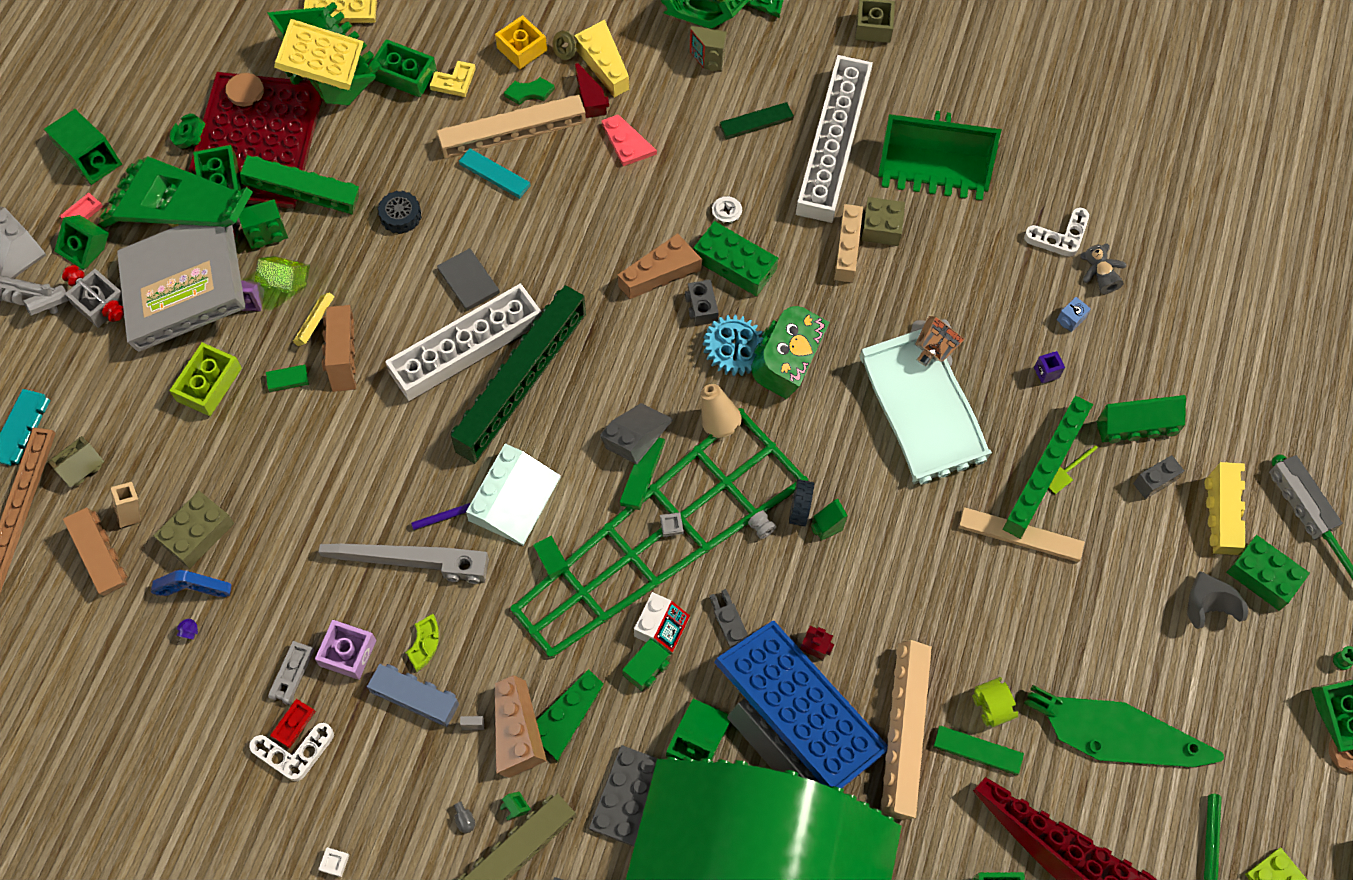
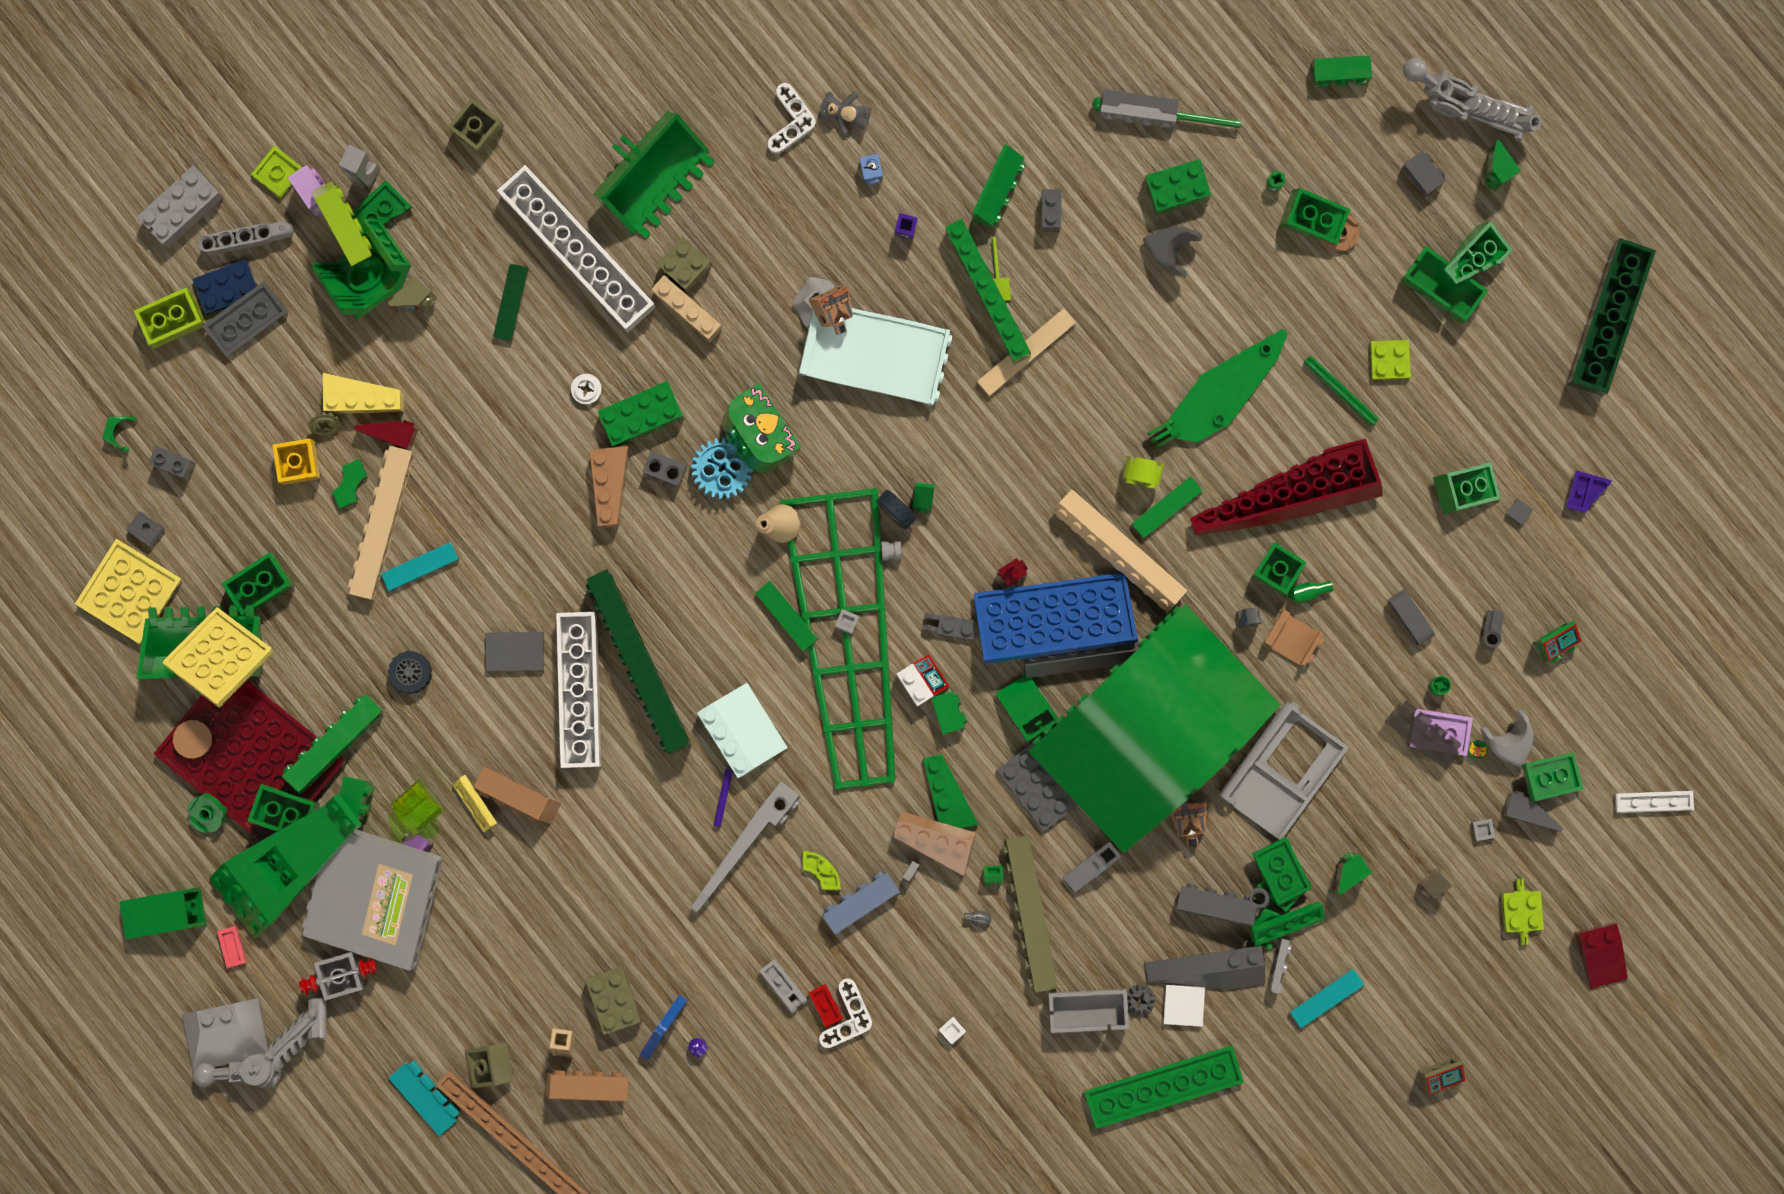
camera: 55 degrees left, 20 degrees up
(80, 240) = (267, 961): green slope -> none
(206, 379) = (479, 922): lime brick -> none
(287, 378) = (516, 854): green tile -> none
(345, 649) = (793, 934): lavender brick -> none
(454, 84) = (301, 544): light yellow plate -> none
(551, 557) = (814, 732): green tile -> none
(627, 141) = (459, 430): coral wing -> none
(635, 432) = (749, 599): dark grey slope -> none
(1226, 508) = (1110, 179): light yellow wedge -> none

